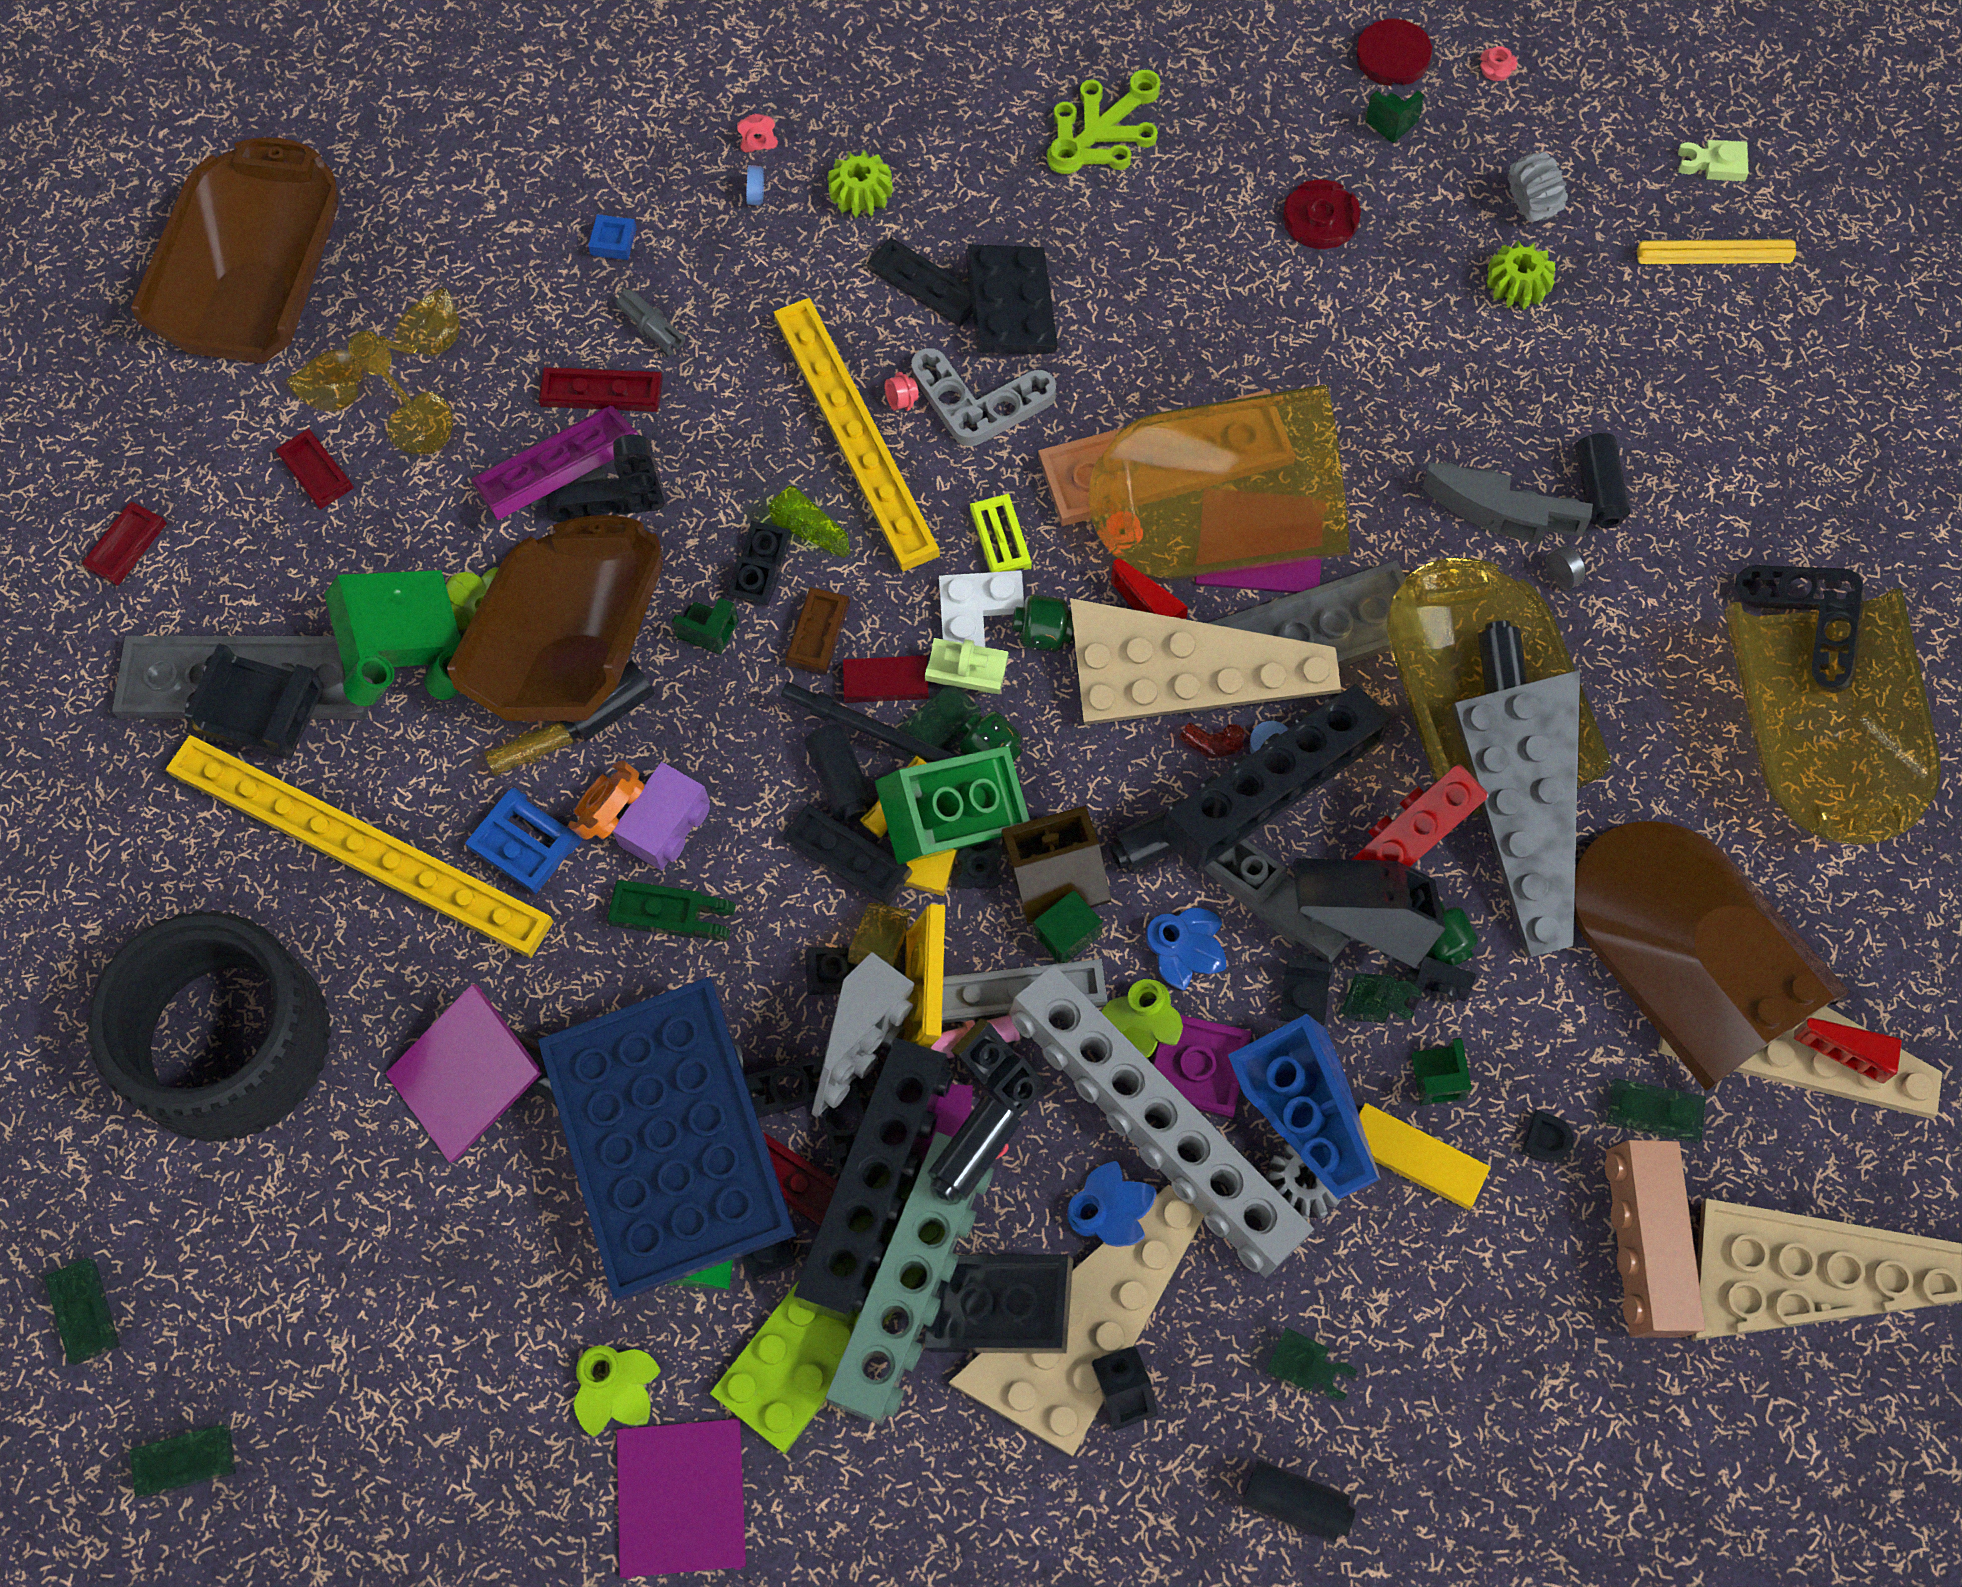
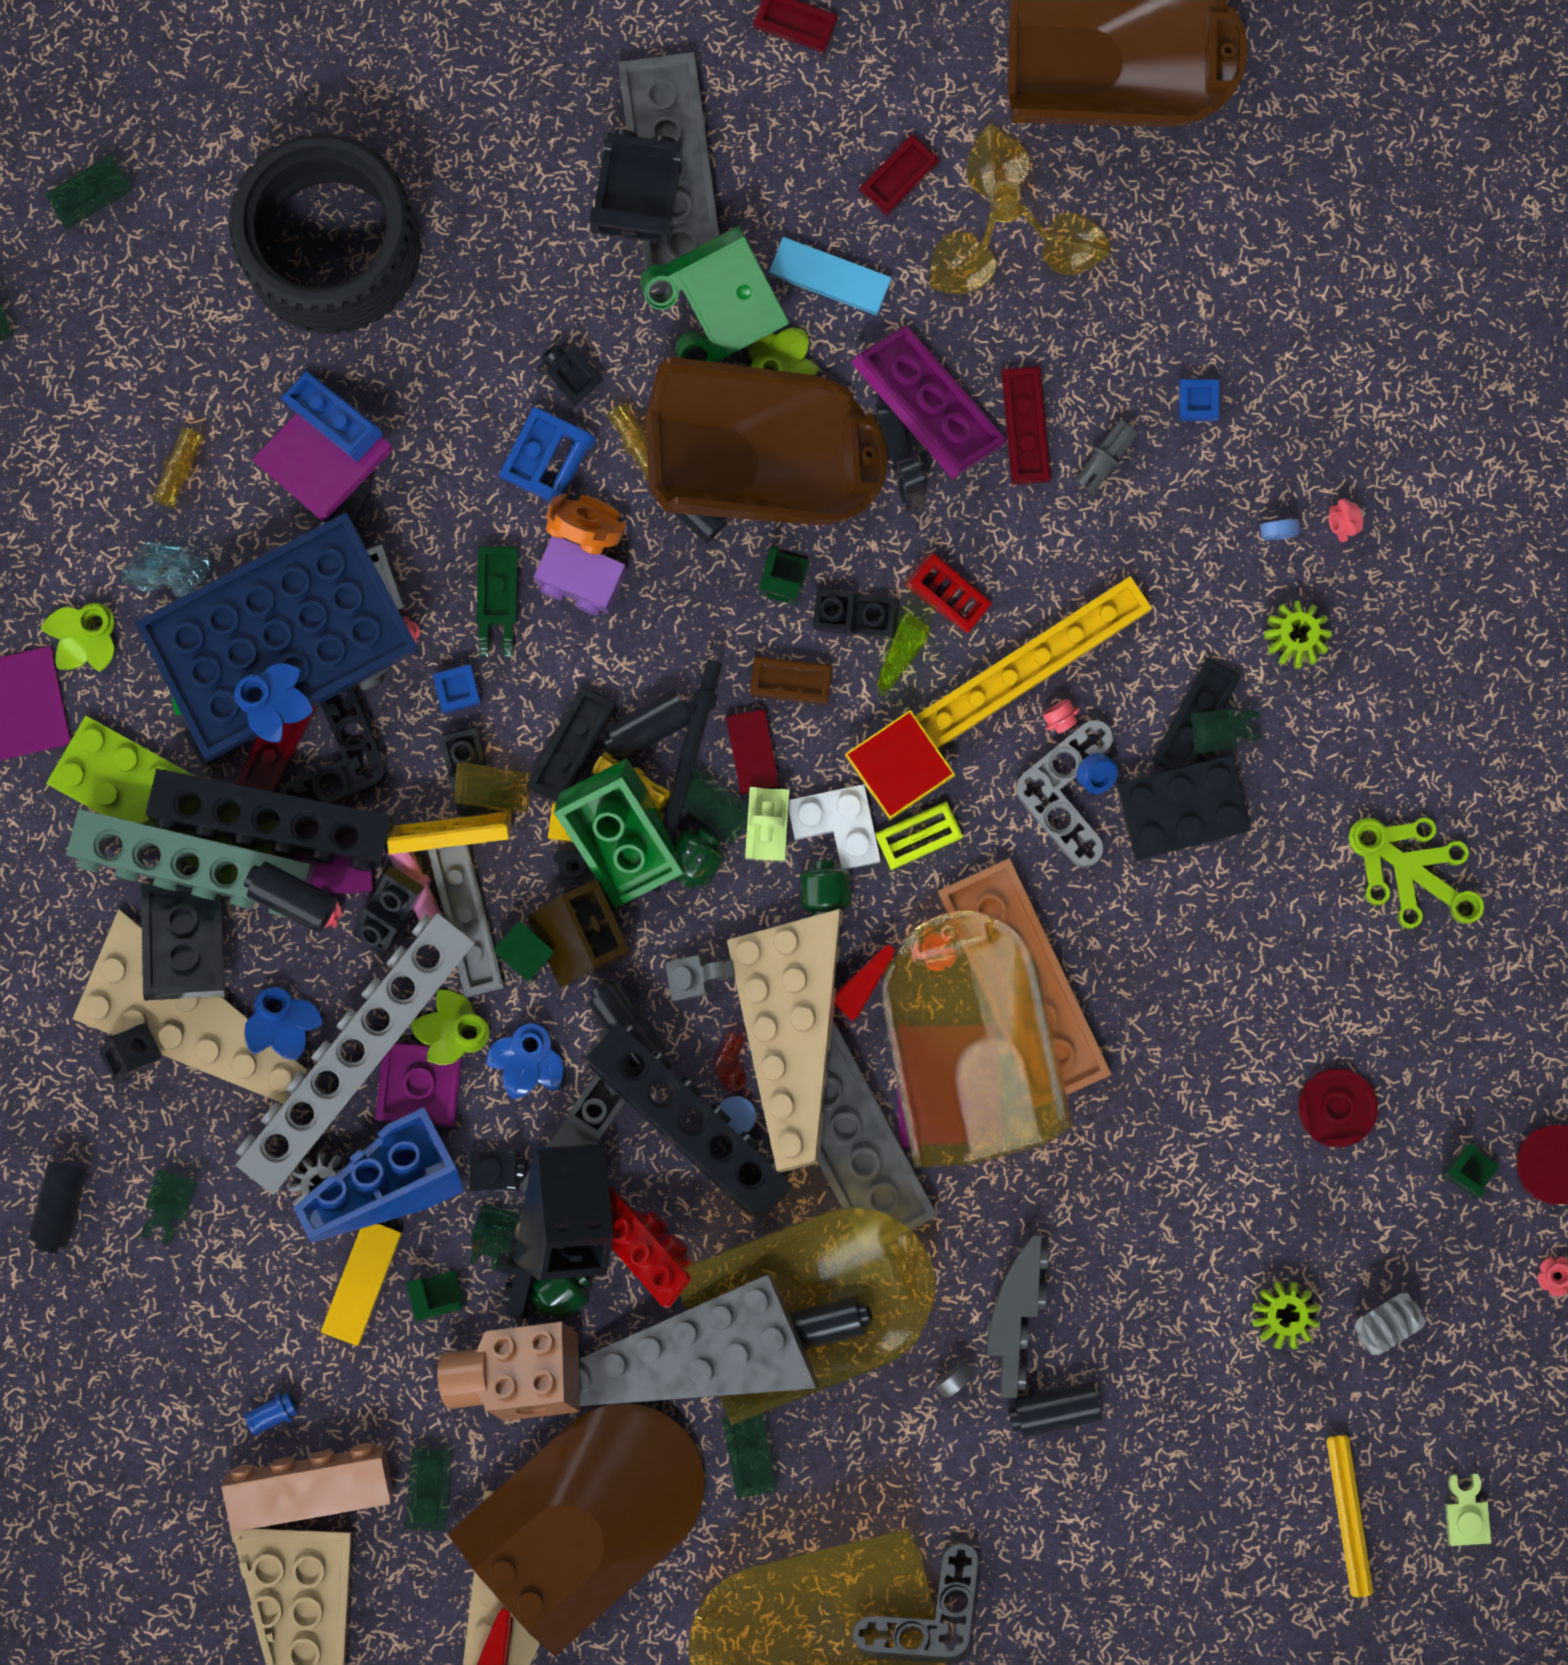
camera: 85 degrees right, 15 degrees up
(361, 846) = (522, 312): yellow plate -> none
(407, 534) = (830, 276): none -> medium azure tile
(421, 1055) = (332, 416): none -> blue tile
(435, 804) = (569, 372): none -> black bracket
(438, 1245) = (178, 467): none -> clear yellow pin
(553, 1272) = (165, 564): none -> clear light blue plate
(740, 498) = (927, 594): none -> red slope
(744, 1134) = (278, 704): none -> blue plate
(761, 965) = (456, 689): none -> blue plate
(865, 1022) = (409, 785): light grey slope -> none
(927, 532) = (900, 765): none -> red tile
(940, 256) = (1218, 729): none -> clear green plate
(965, 366) = (1097, 773): none -> blue tile
(1118, 763) = (694, 976): none -> dark grey plate
(1537, 988) = (515, 1373): none -> nougat brick
(1547, 1138) = (391, 1394): black tile -> none
(1562, 1275) = (271, 1413): none -> blue pin
(1640, 773) = (749, 1457): none -> clear green plate

